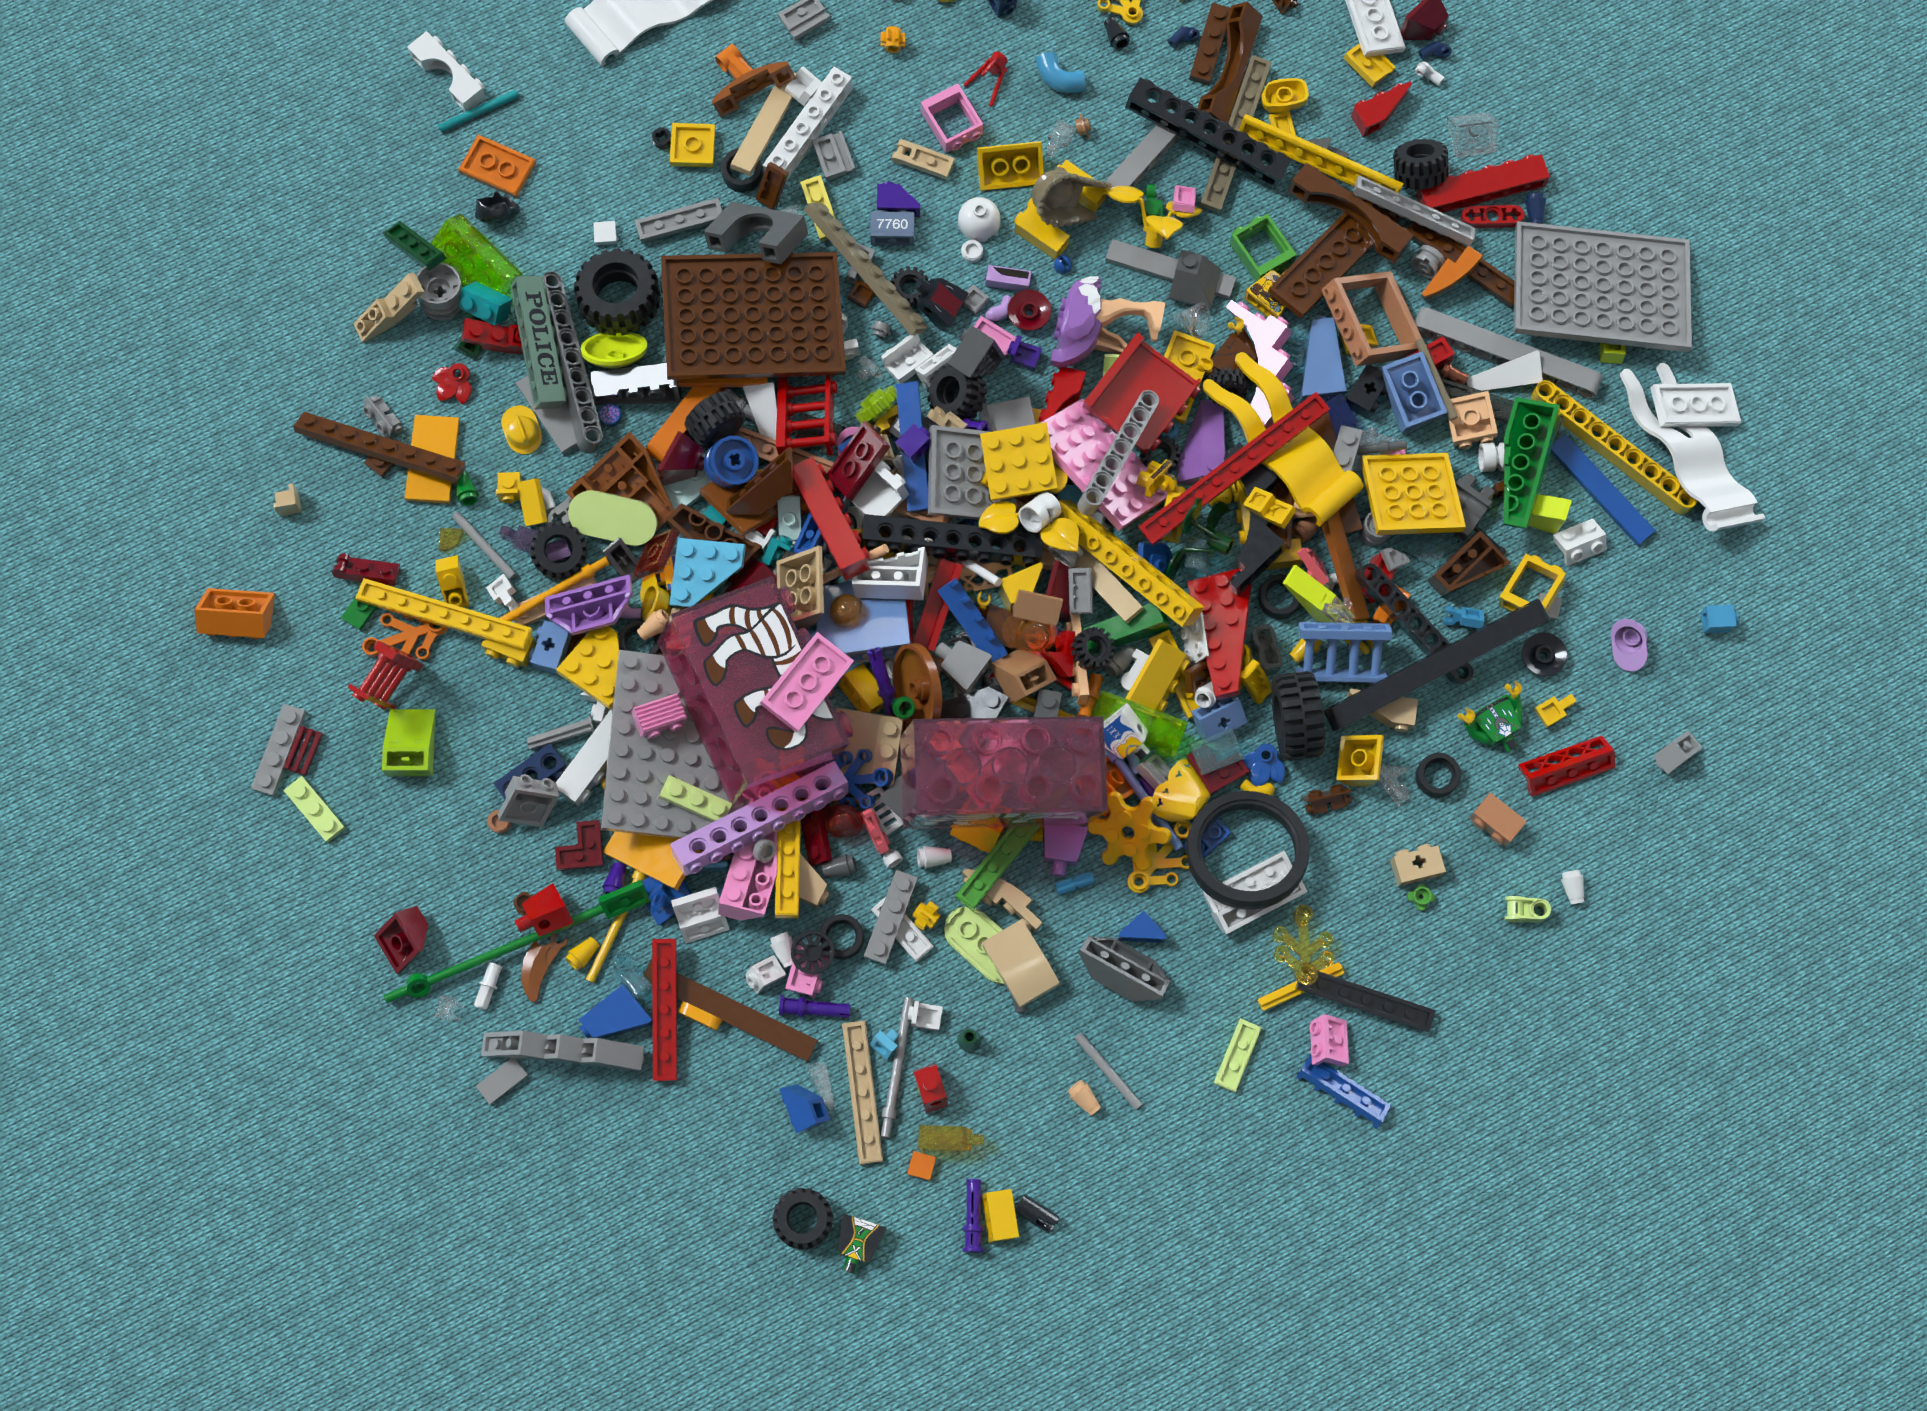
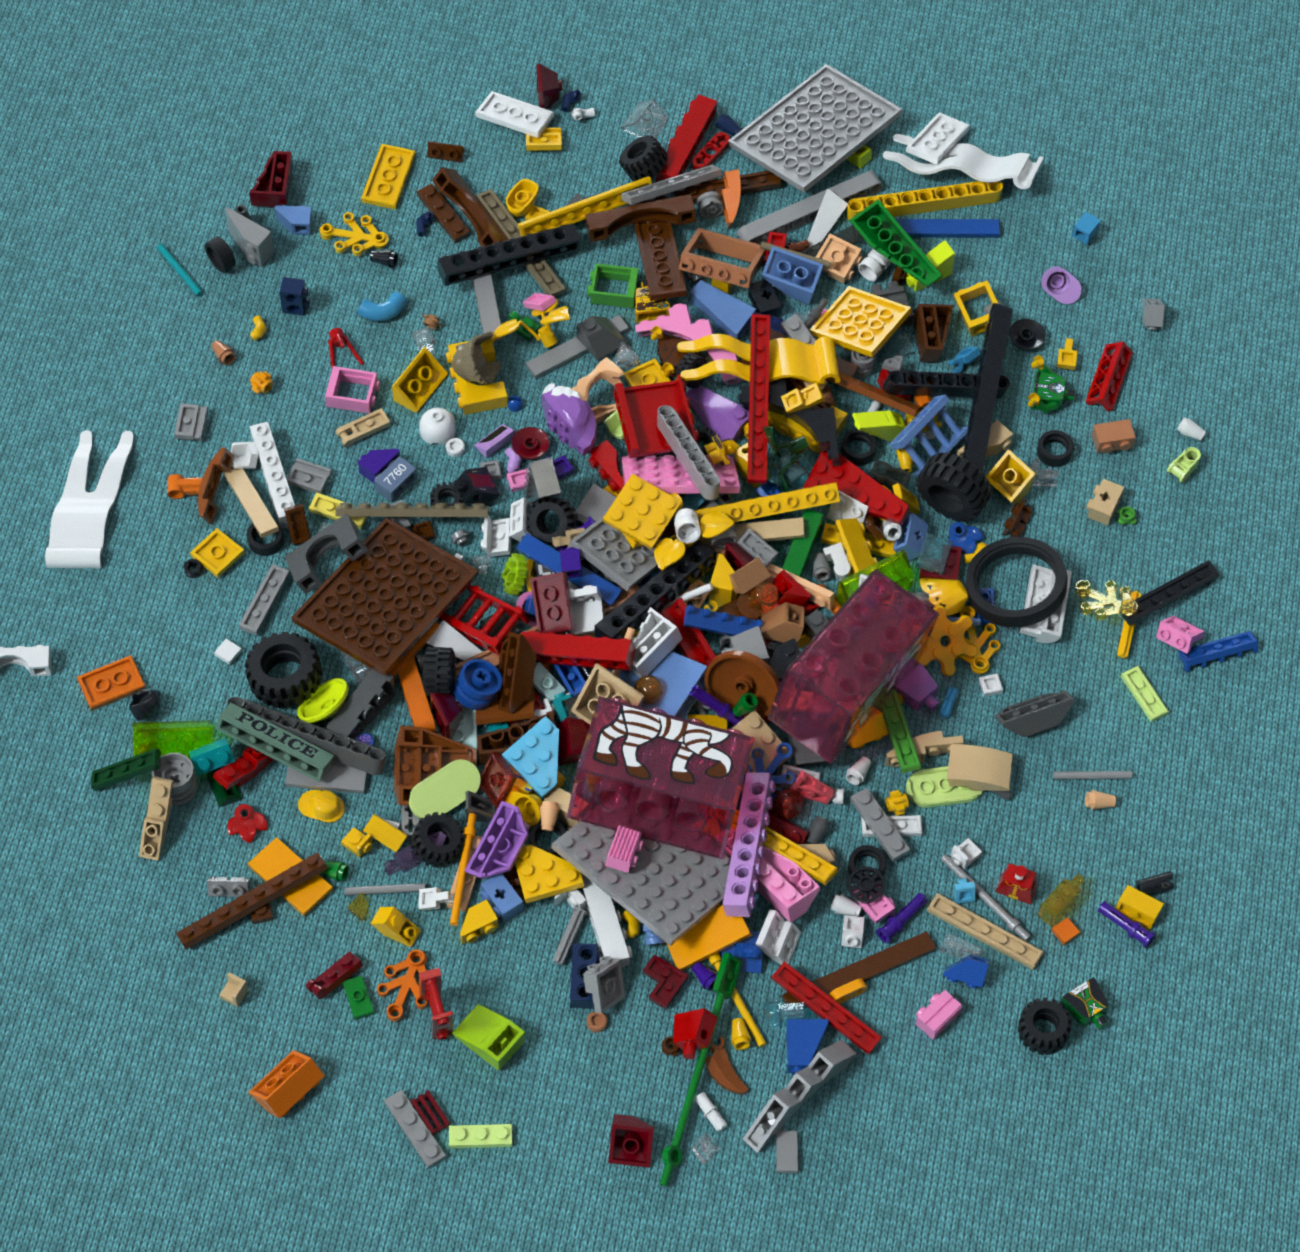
camera: 50 degrees left, 15 degrees down
(444, 614) = (417, 944): yellow tile -> none
(478, 111) = (58, 665): teal bar -> none
(694, 799) = (700, 874): yellowish green plate -> none
(740, 1113) = (938, 1014): none -> bright pink brick
(764, 850) = (772, 858): light grey tile -> none
(806, 682) = (693, 727): bright pink plate -> none
(966, 1045) = (1003, 839): dark green cone -> none
(1083, 654) = (797, 565): black tyre -> none
(1126, 907) = (990, 685): none -> white tile
(1142, 930) = (1015, 684): blue slope -> none
(1314, 565) = (858, 407): coral wing -> none
(1339, 611) = (904, 415): clear tile -> none
(1374, 113) = (581, 160): red slope -> none
(1581, 541) = (970, 262): white bracket -> none

